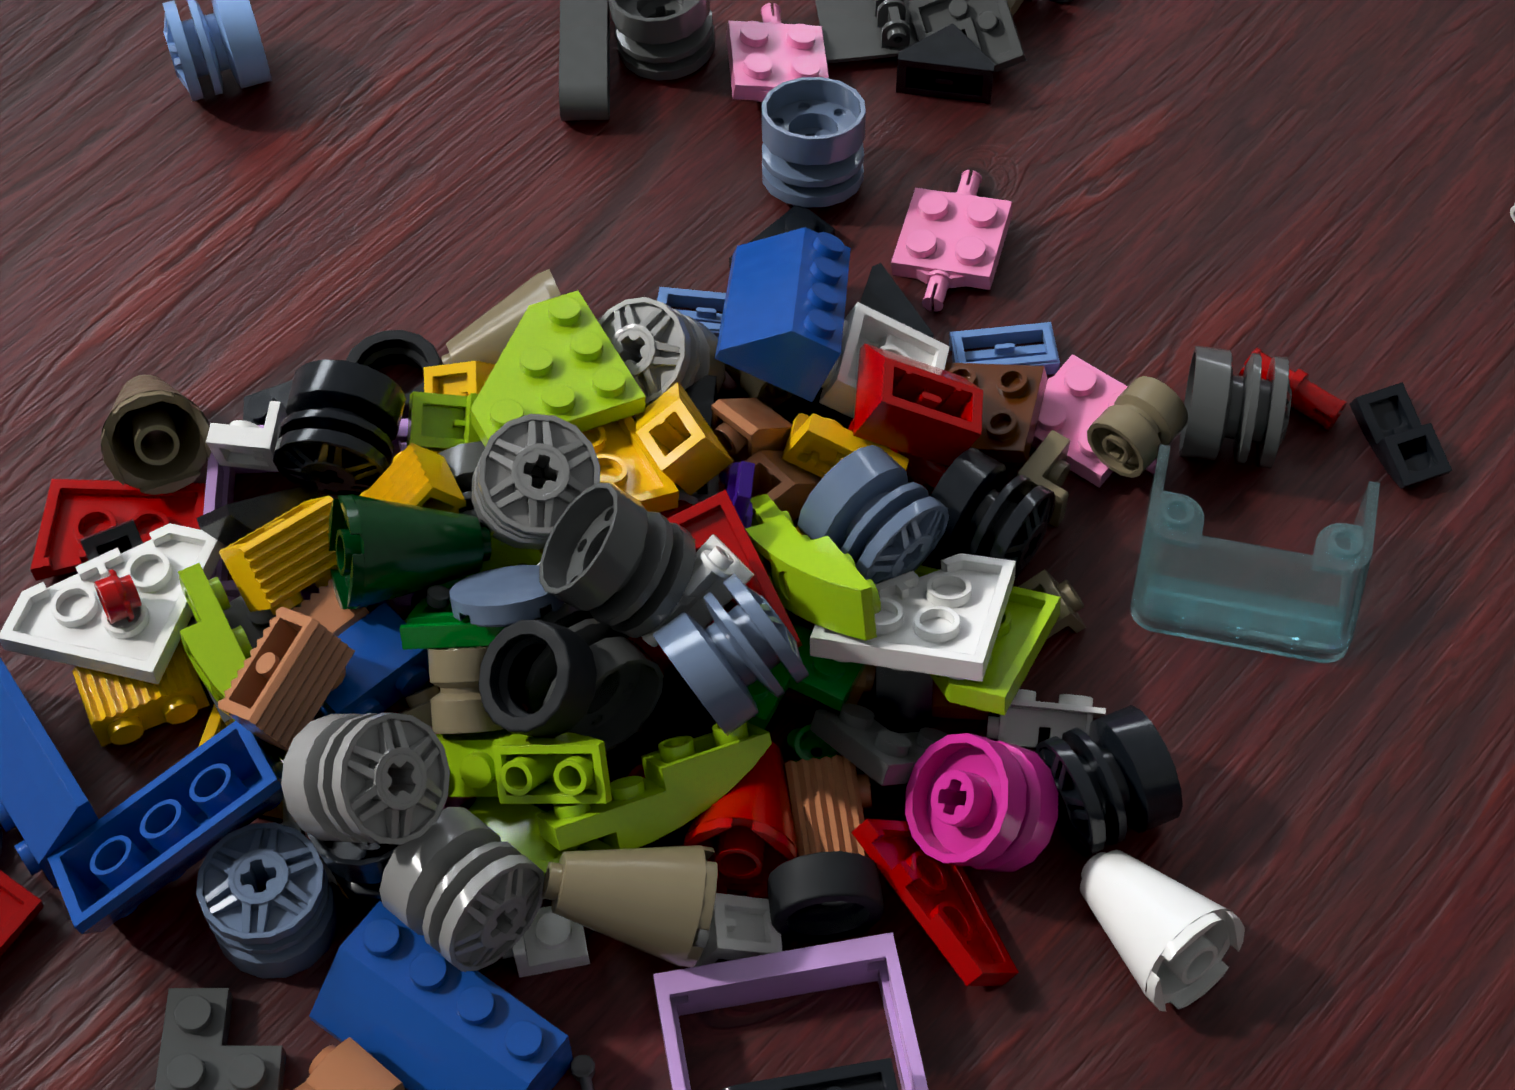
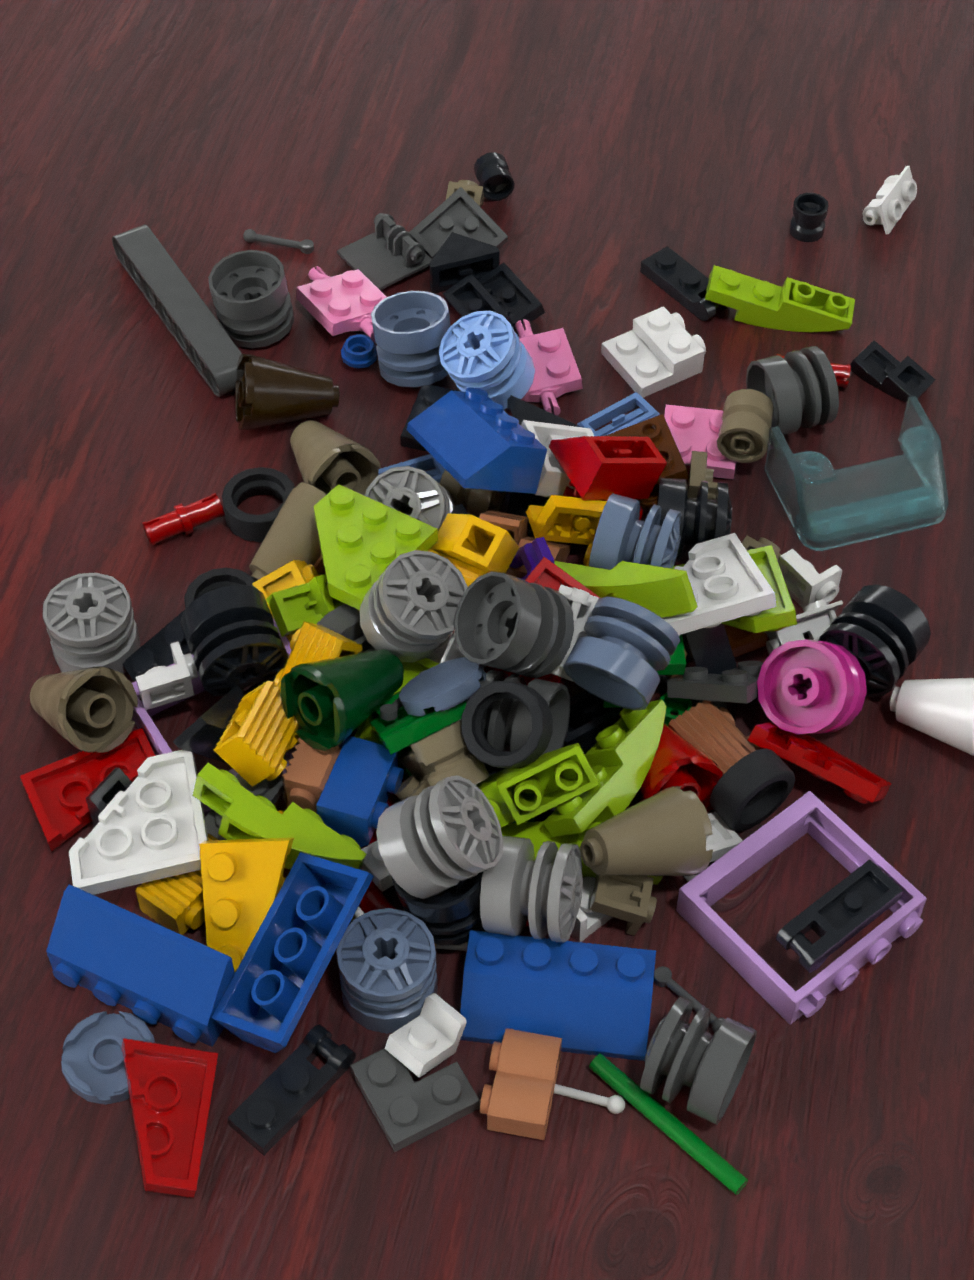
camera: 30 degrees left, 5 degrees down
(95, 982) = (291, 1090): none -> black plate
(118, 596) = (152, 818): red plate -> none
(160, 723) = (239, 889): none -> yellow wing
(228, 339) = (90, 623): none -> light grey wheel
(266, 1001) = (428, 1037): none -> white bracket
(286, 678) = (330, 806): nougat brick -> none
(420, 254) = (183, 519): none -> red pin
(503, 245) = (248, 484): none -> black tyre
(586, 956) = (624, 898): none -> dark tan bracket
(616, 257) = (332, 459): none -> dark tan cone
(620, 147) = (280, 393): none -> dark brown cone
(747, 131) = (359, 351): none -> blue plate
(877, 205) = (488, 356): none -> light blue wheel
(956, 133) = (496, 292): none -> black slope
(1087, 664) = (805, 583): none -> white bracket
(1110, 281) = (655, 352): none -> white plate
(1214, 205) = (681, 282): none -> black plate
(1319, 290) = (788, 308): none -> lime slope
(1432, 180) = (808, 217): none -> black wheel

